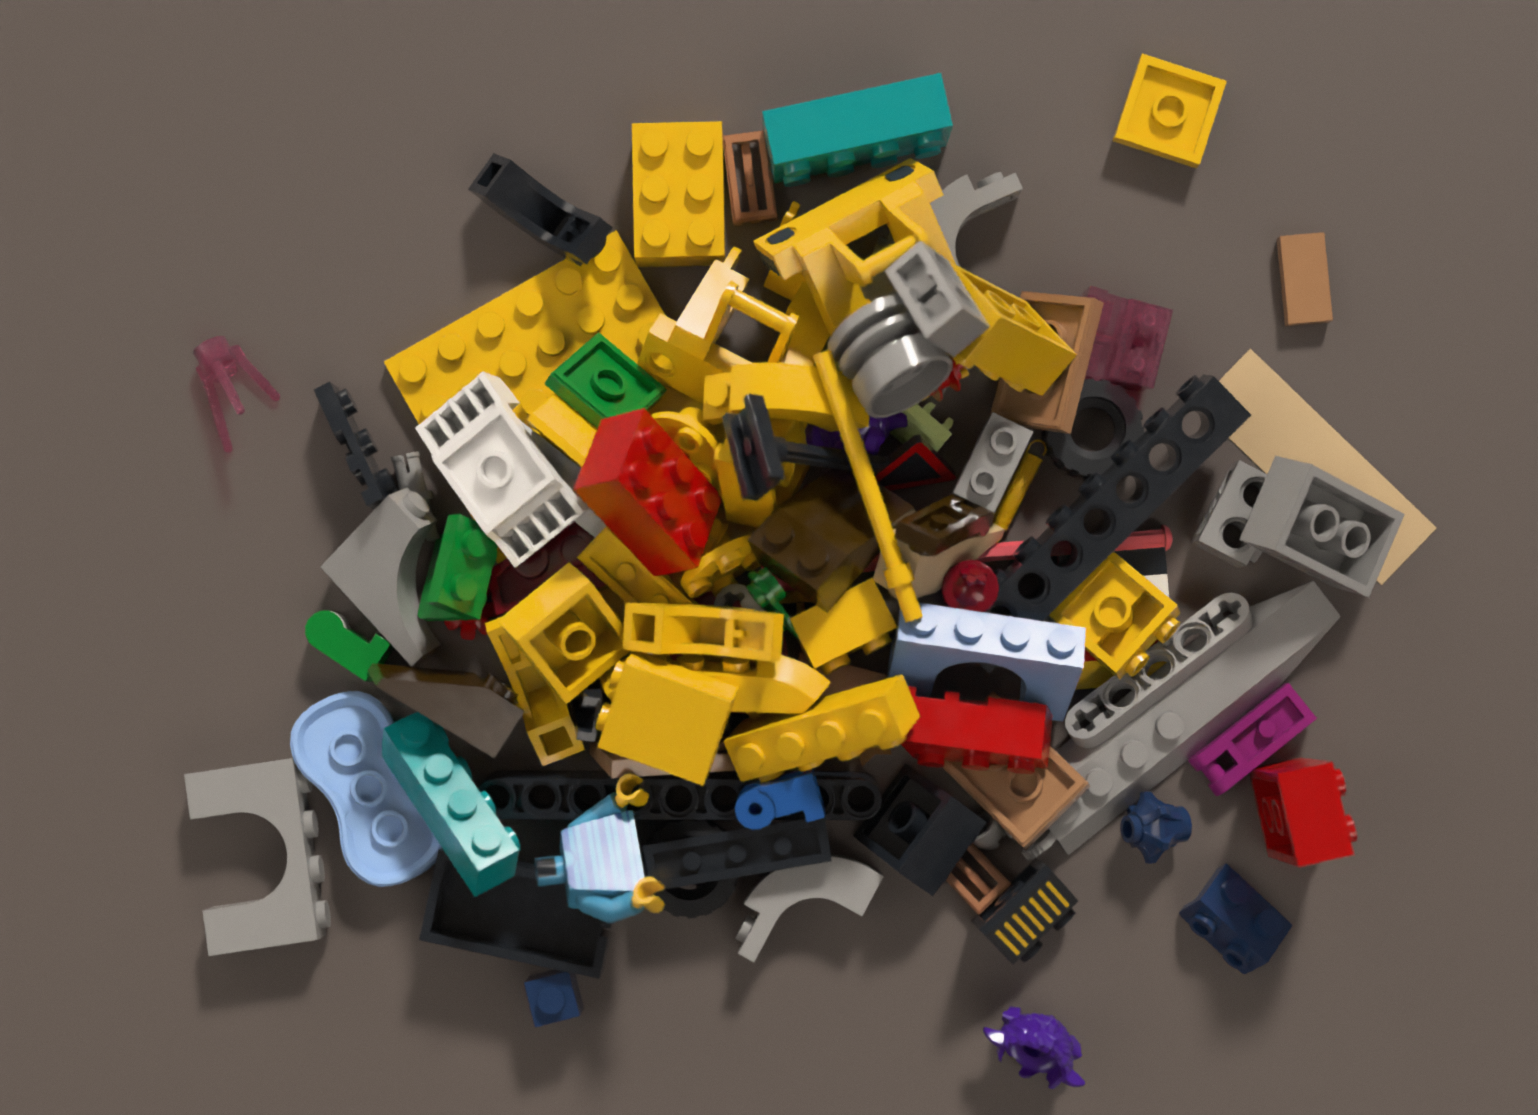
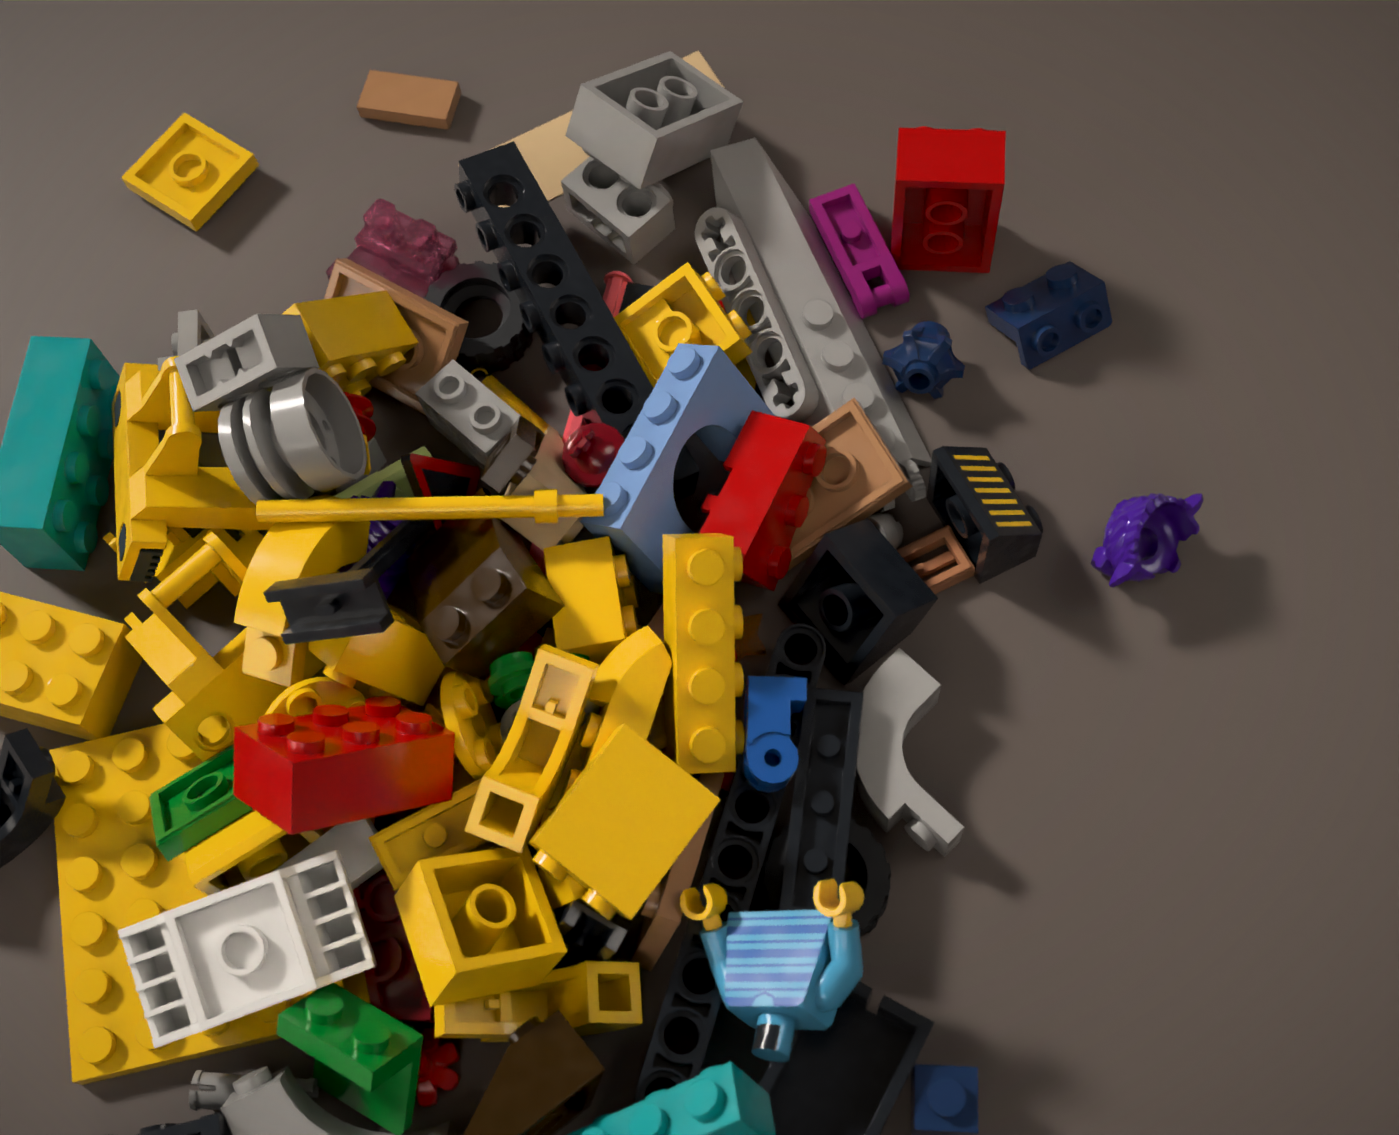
camera: 65 degrees left, 20 degrees down
(754, 215) = (103, 599): nougat tile -> none

